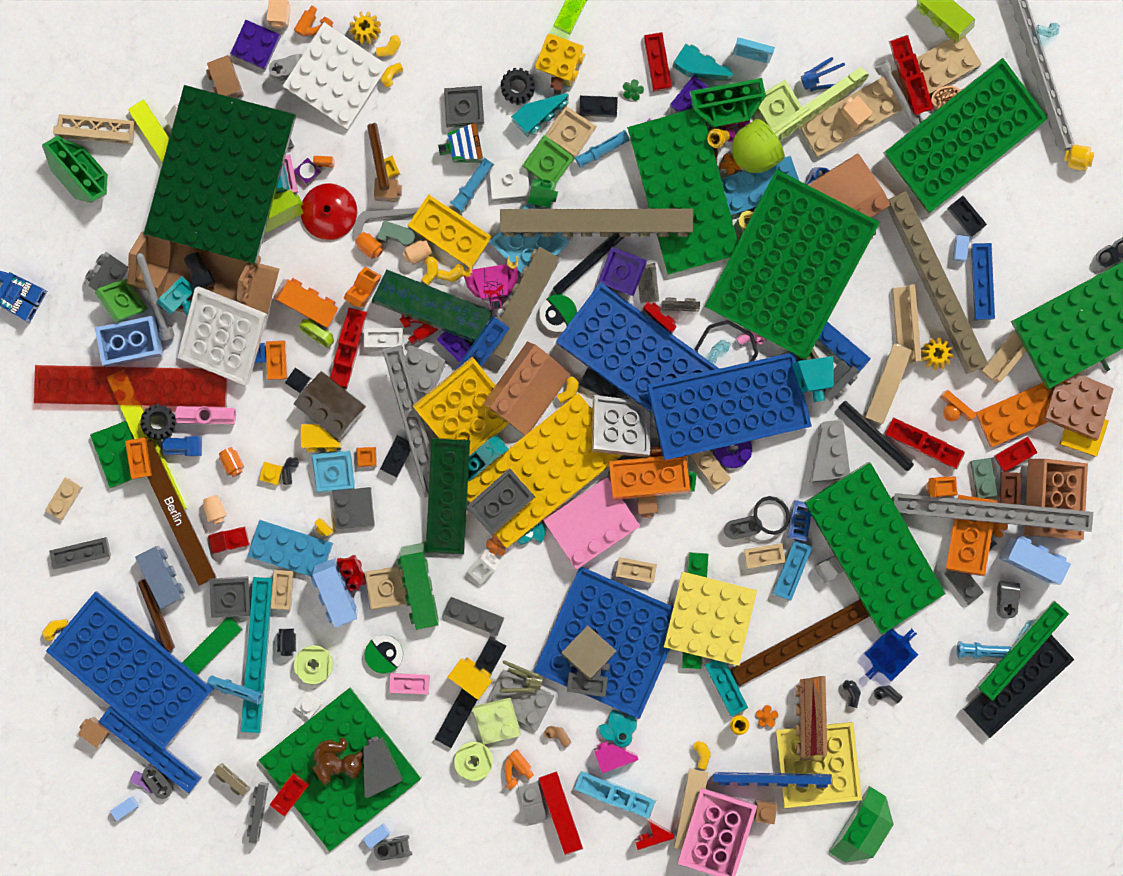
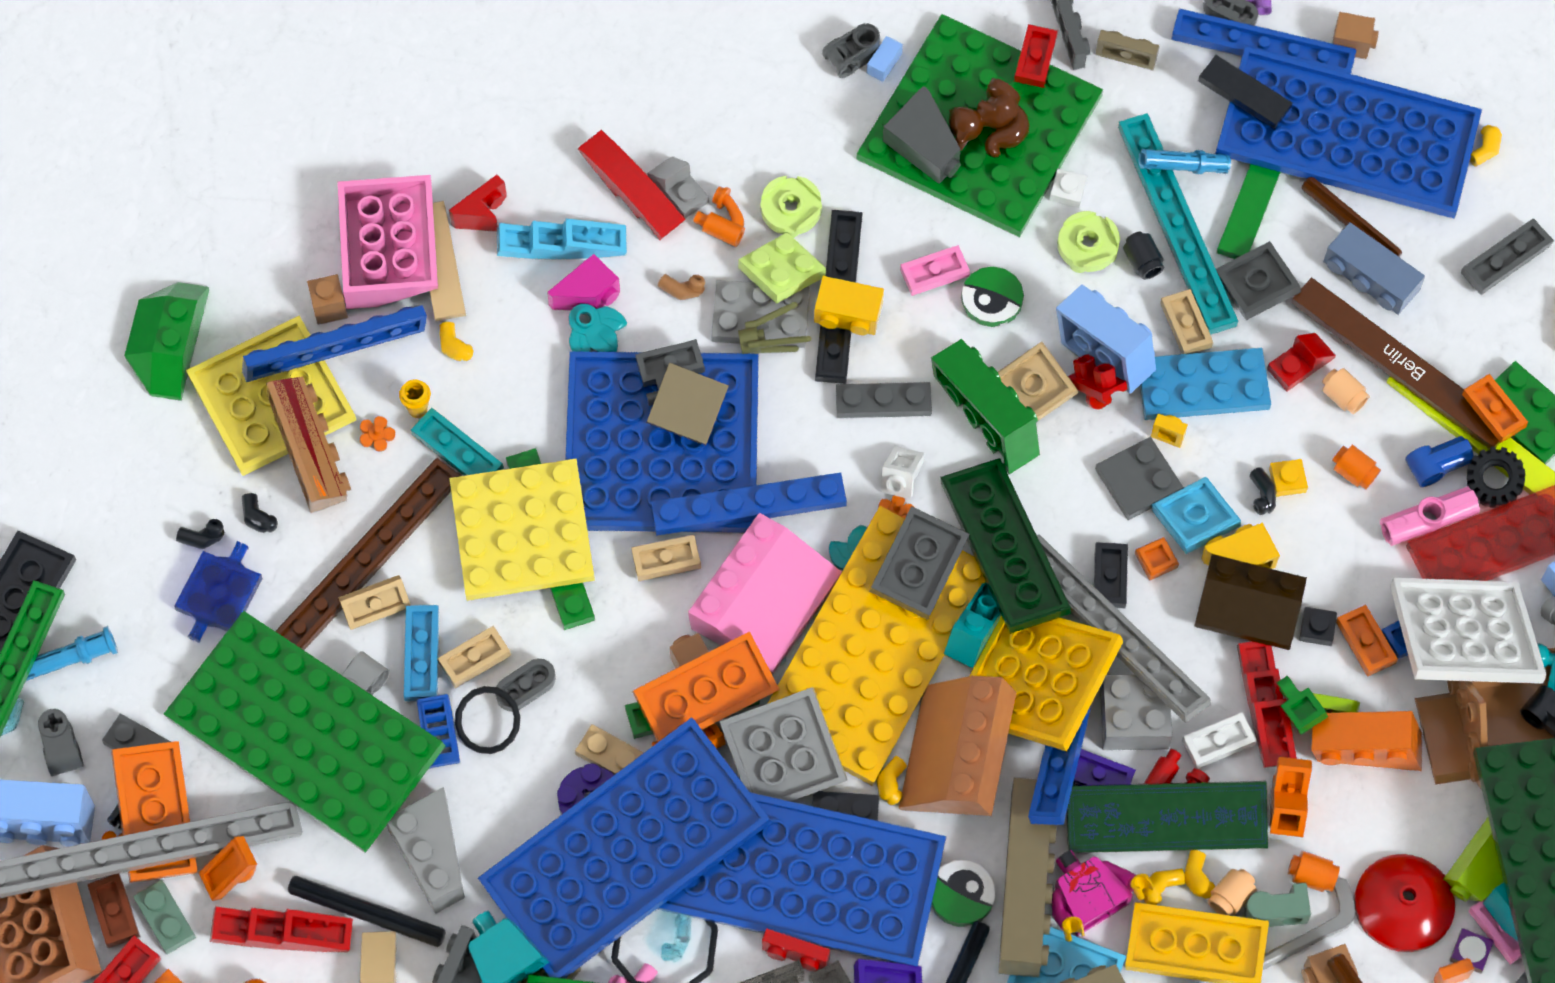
camera: 155 degrees right, 20 degrees down
(178, 718) = (1245, 91): none -> black tile
(333, 330) = (1301, 707): none -> green plate
(578, 580) = (746, 503): none -> blue plate
(807, 611) = (374, 602): none -> tan plate

